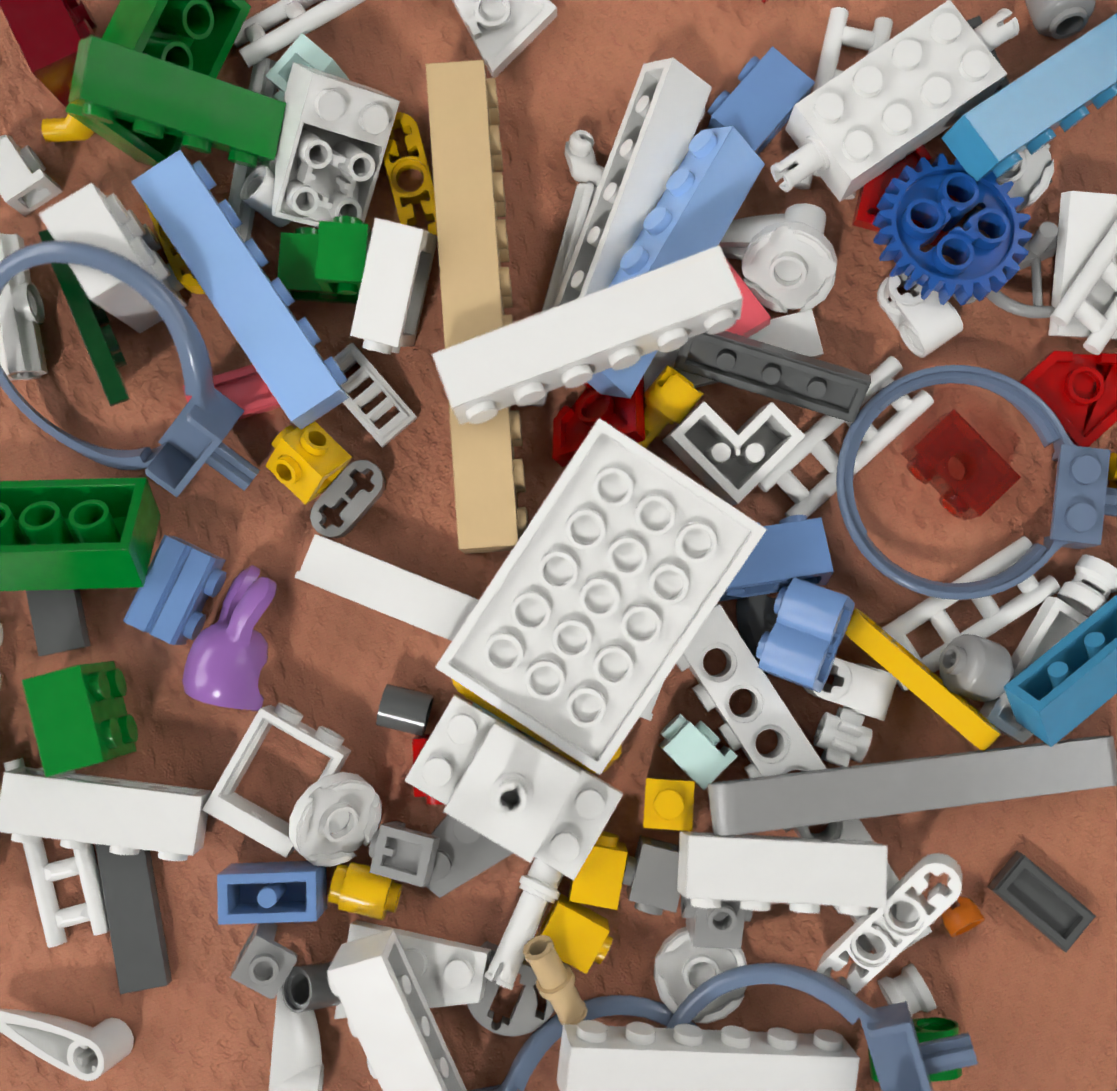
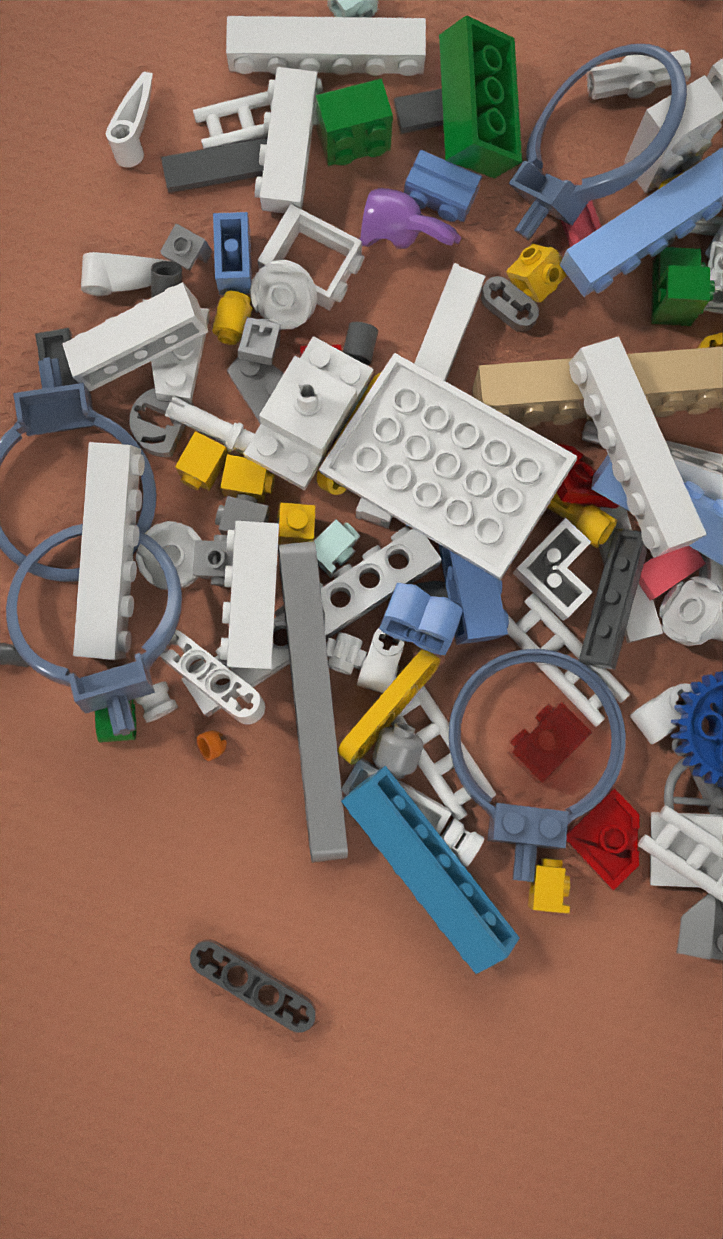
camera: 85 degrees right, 5 degrees down
(98, 340) = (609, 130): dark green wing -> none
(346, 359) = (605, 307): white slope -> none
(393, 286) = (663, 322): white window -> none
(555, 980) = (172, 443): tan pin -> none
(1041, 901) = (222, 807): dark grey tile -> none

